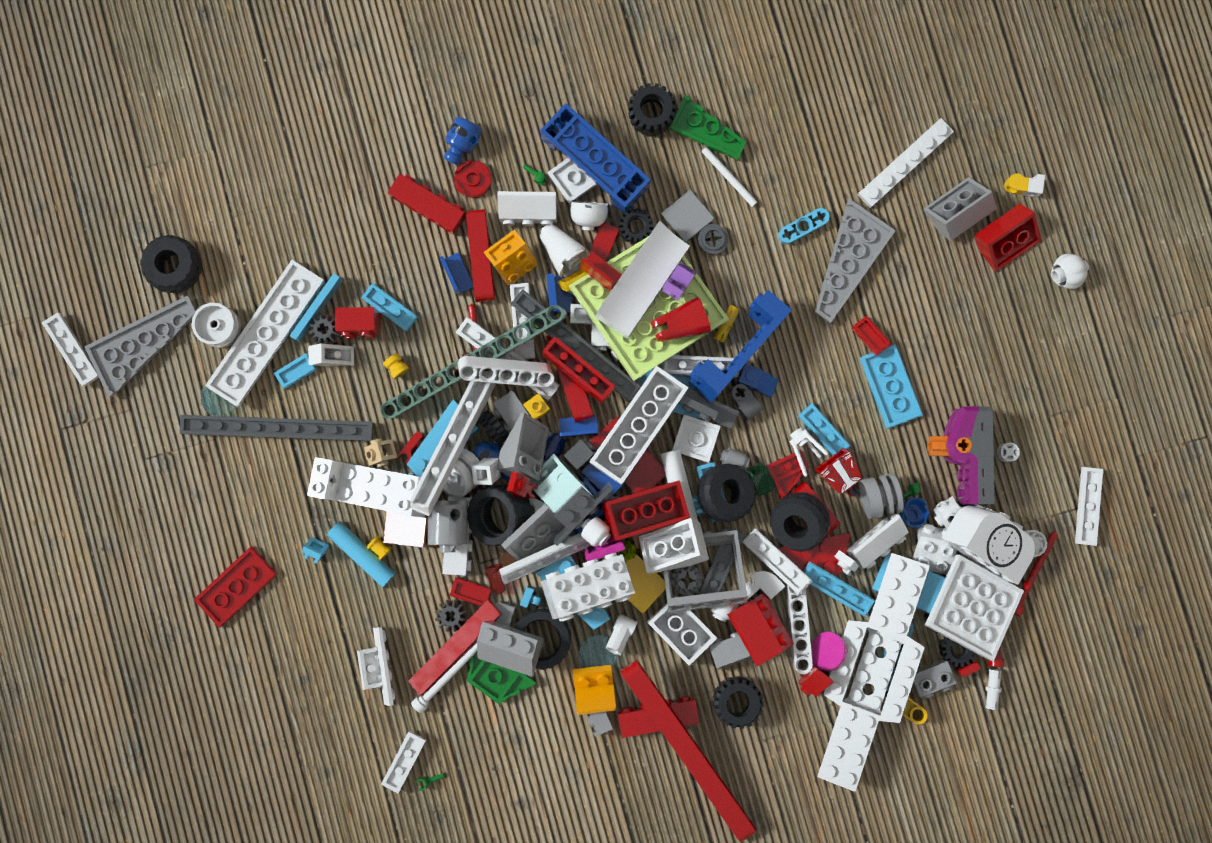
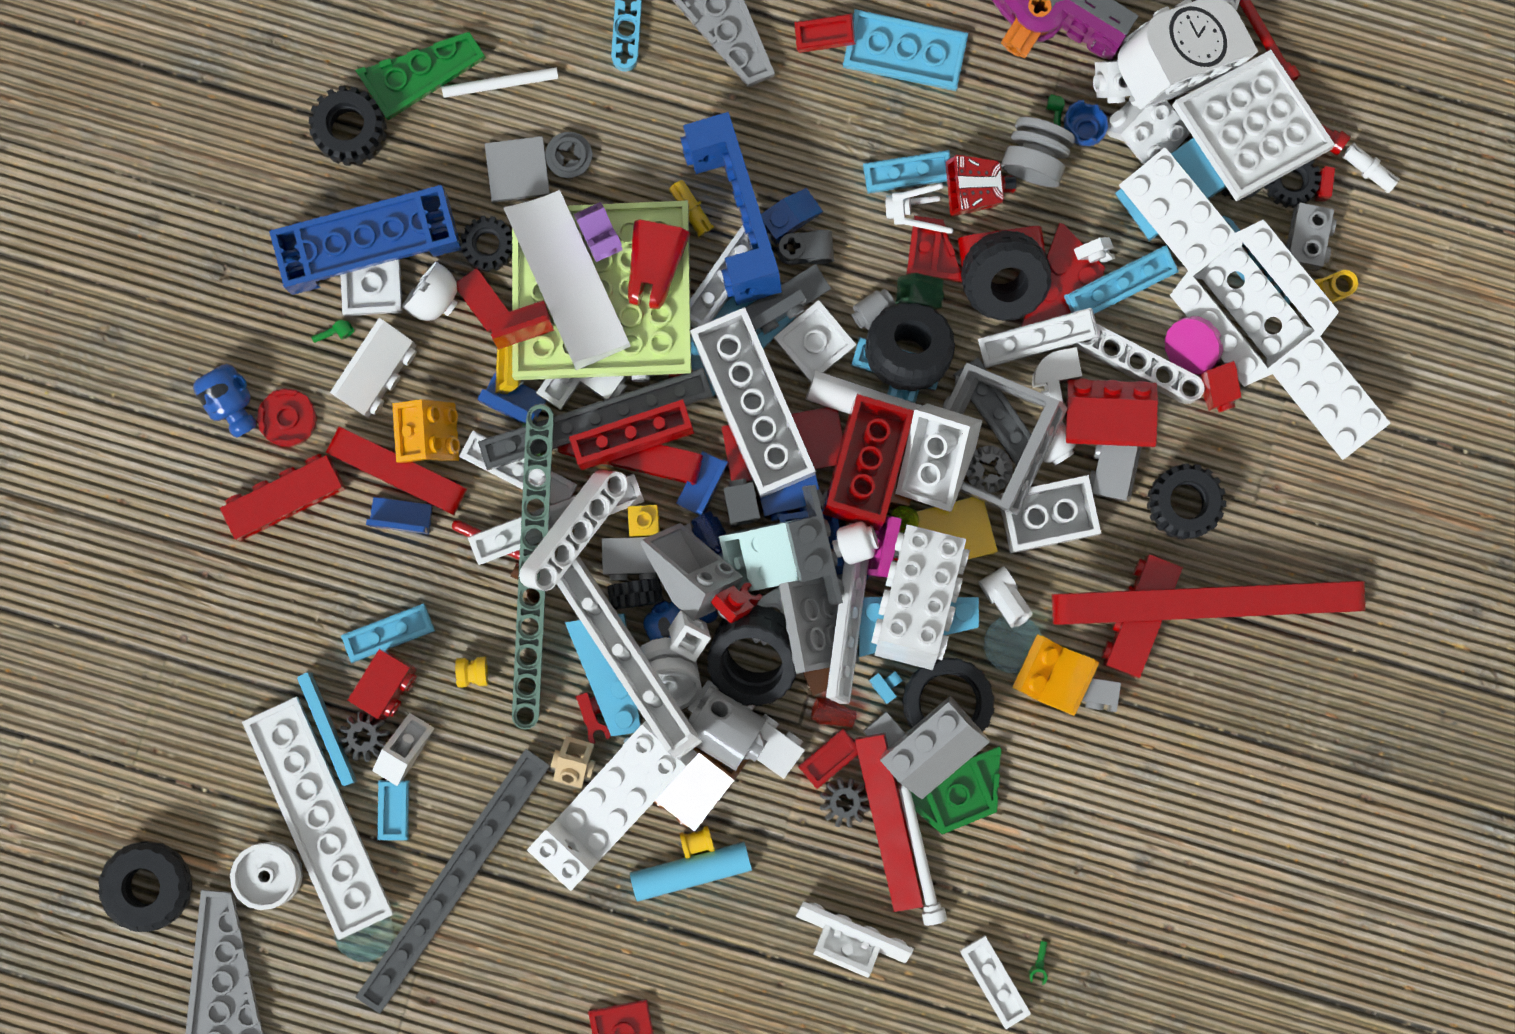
camera: 60 degrees left, 0 degrees up
(315, 549) = (646, 927): medium azure tile -> none
(563, 250) = (459, 358): white cone -> none
(878, 541) = (1093, 192): white slope -> none

